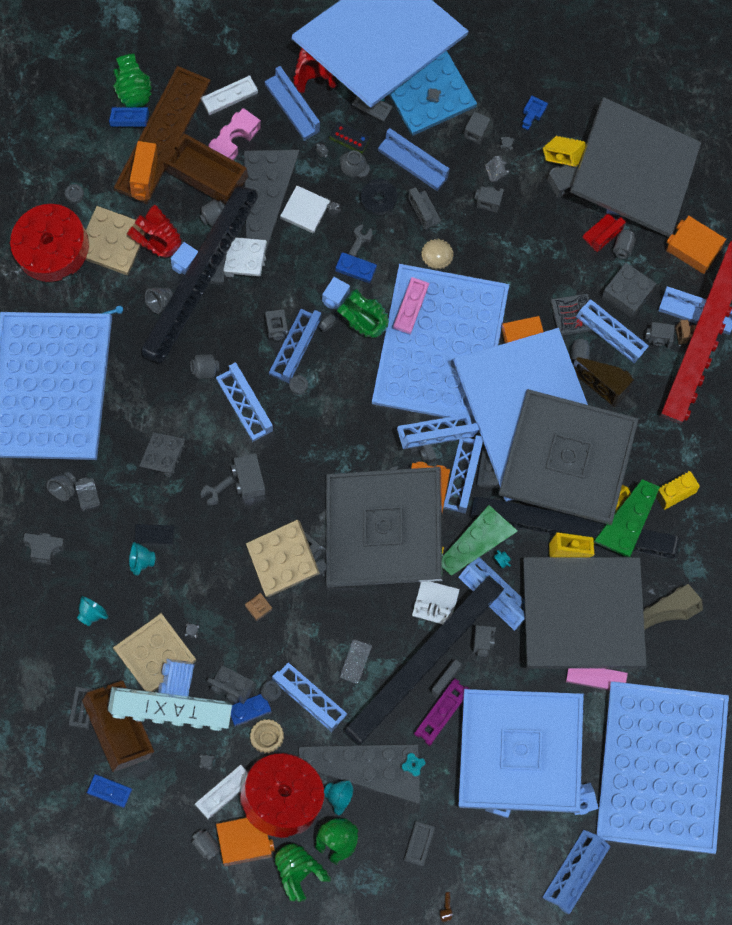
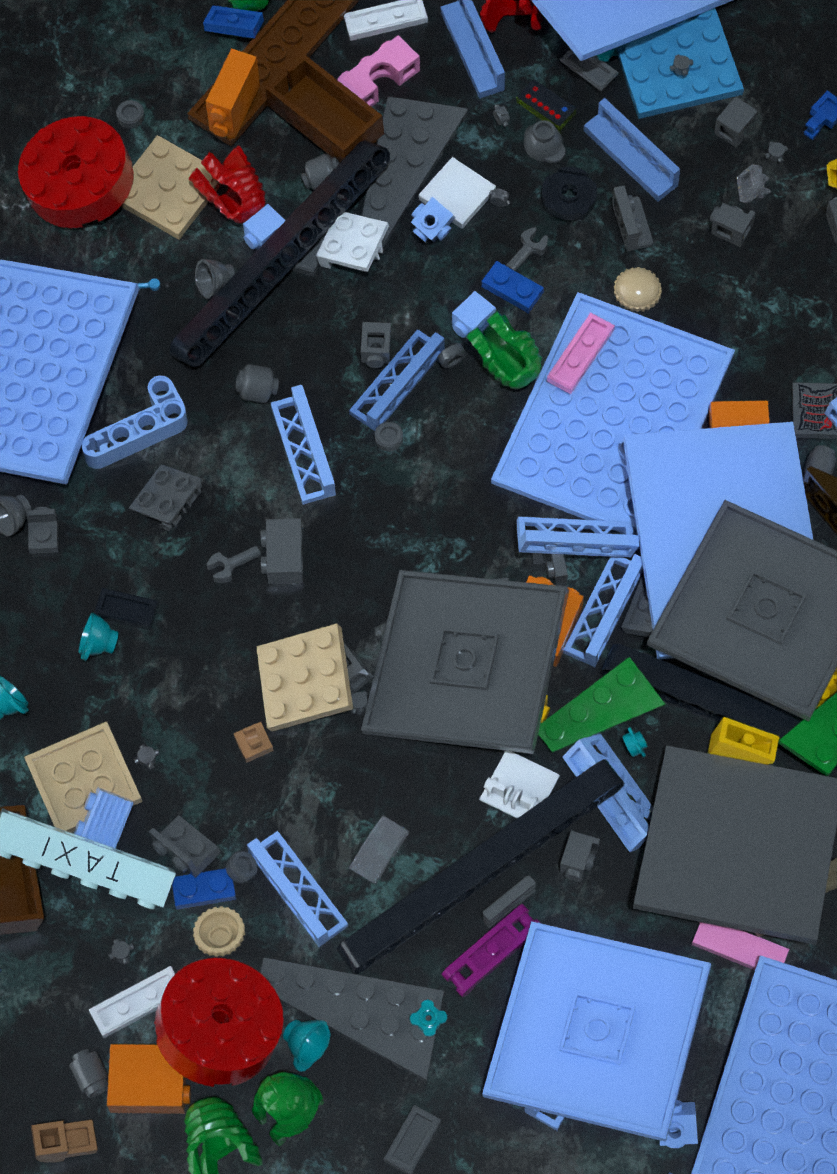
camera: 20 degrees right, 5 degrees down
(129, 412) = (132, 427): none -> light blue beam
(200, 891) = (59, 1141): none -> medium nougat brick
(294, 225) = (424, 213): none -> light blue brick

